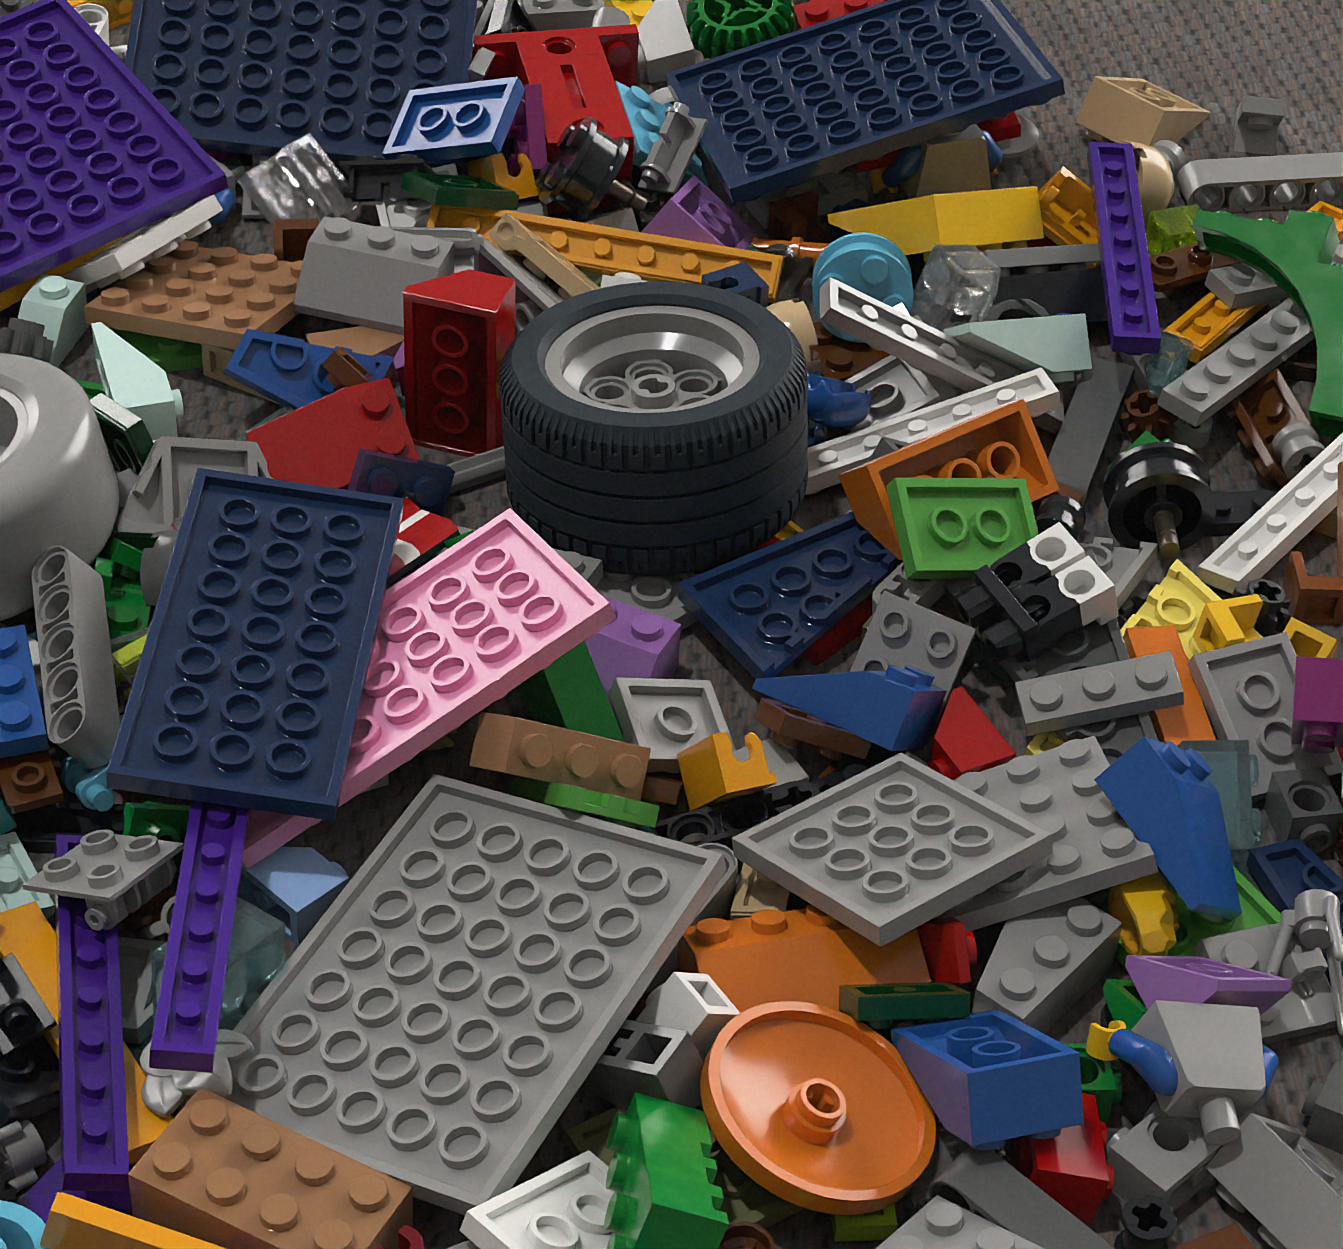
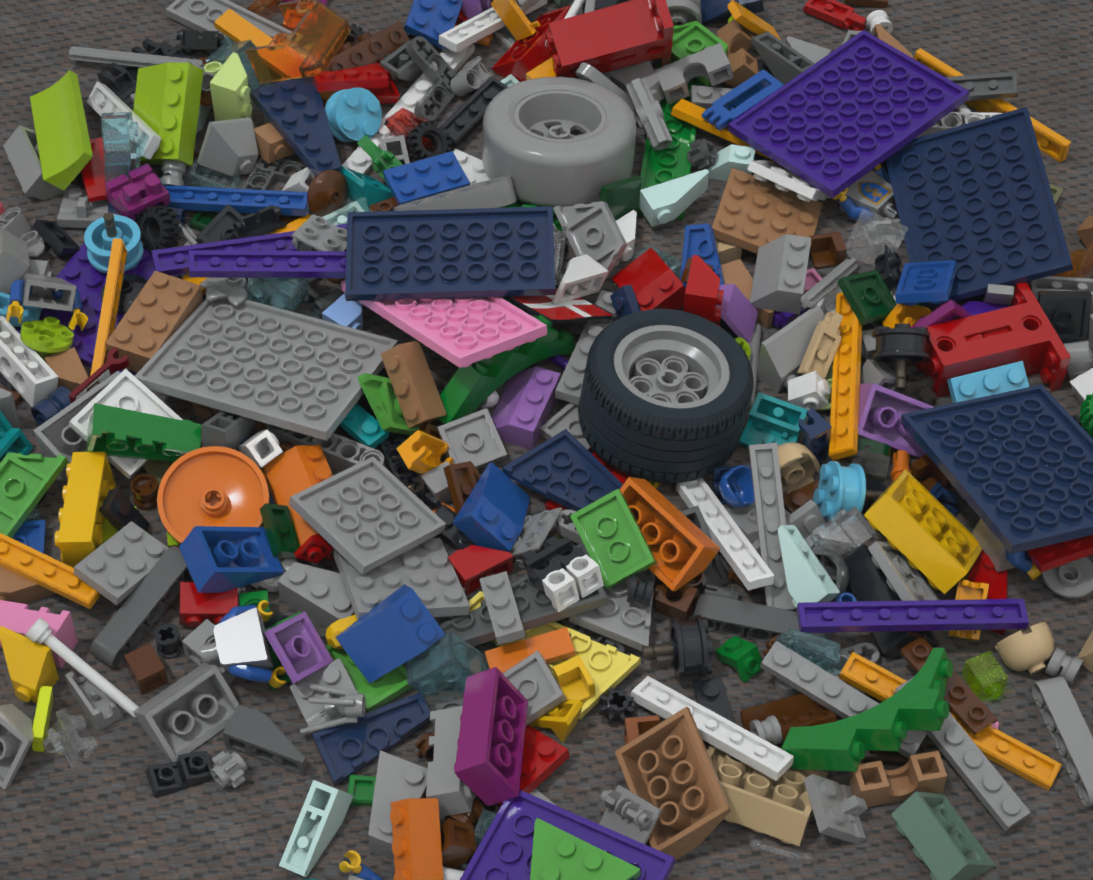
camera: 85 degrees right, 10 degrees up
(673, 151) = (960, 389): light grey hinge -> none

